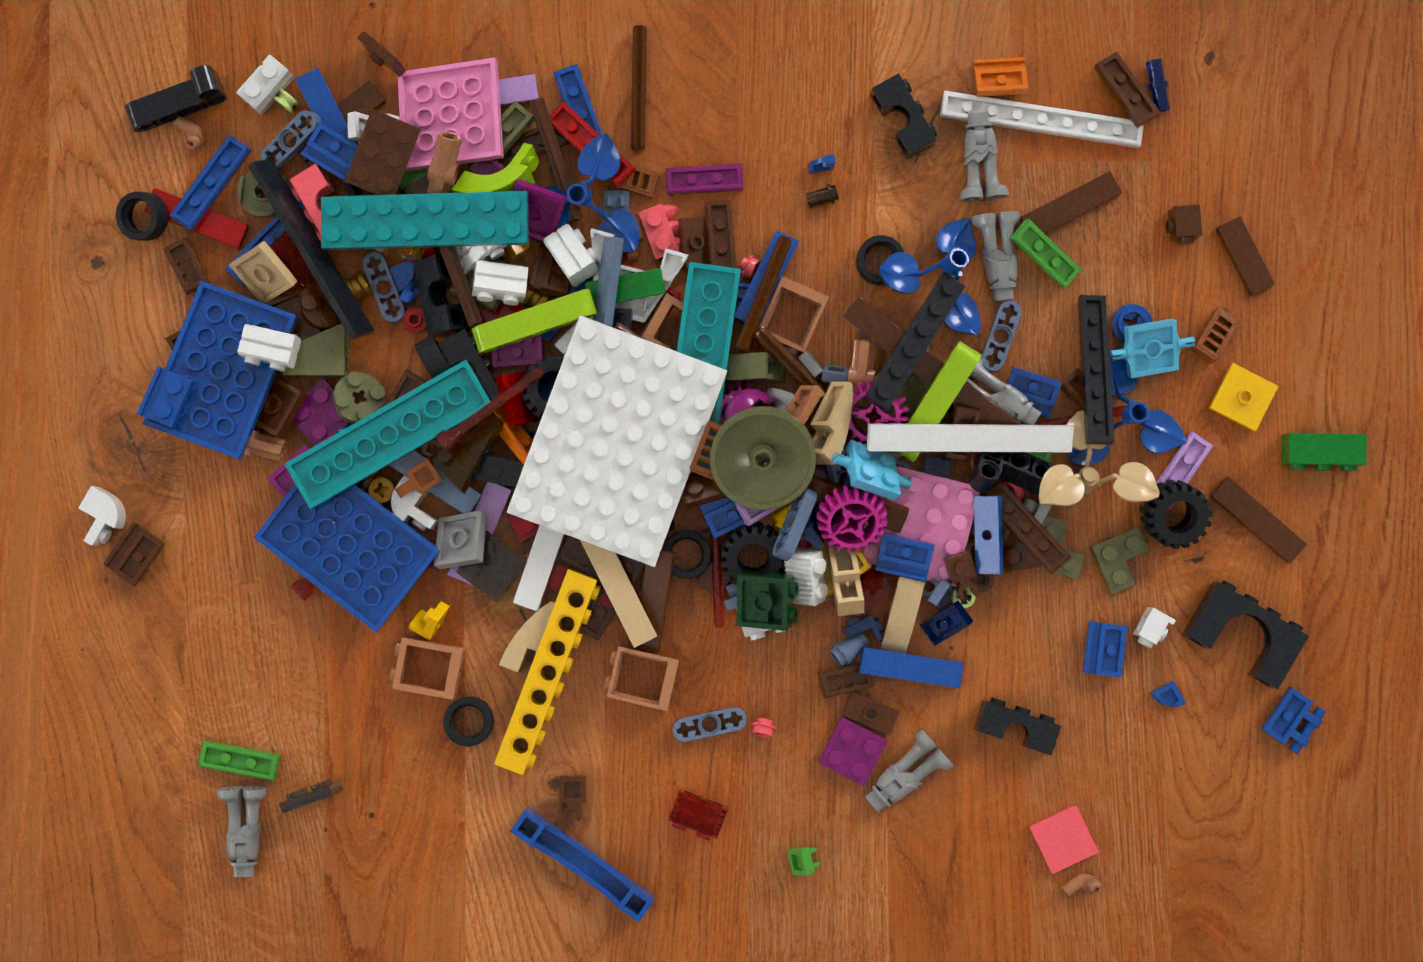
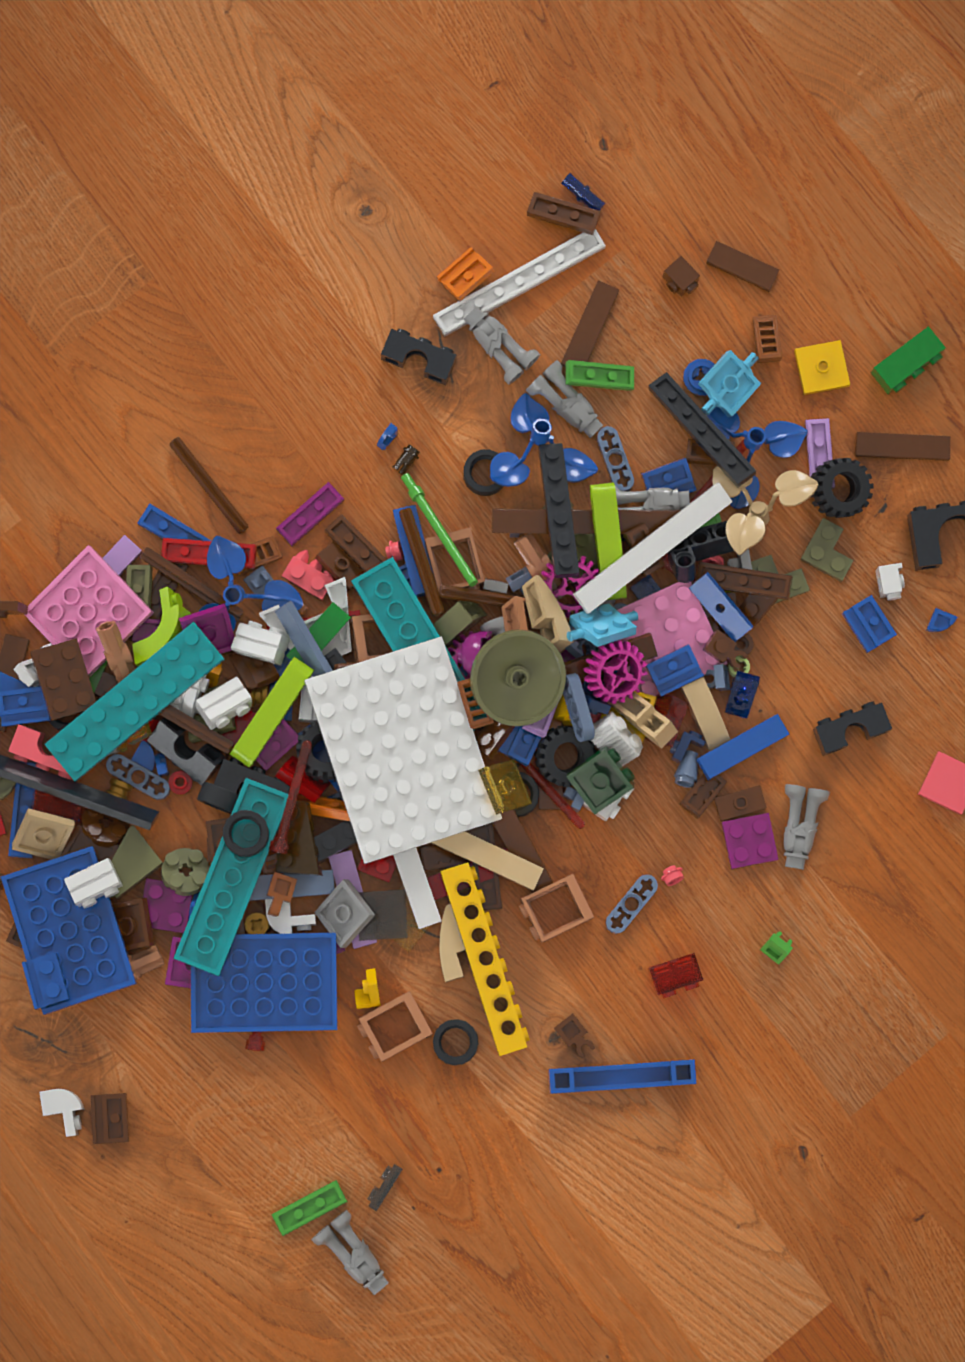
camera: 45 degrees left, 5 degrees down
(409, 395) = (227, 833): none -> black tyre
(678, 541) = (504, 787): none -> clear yellow plate
(807, 233) = (417, 495): none -> bright green bar

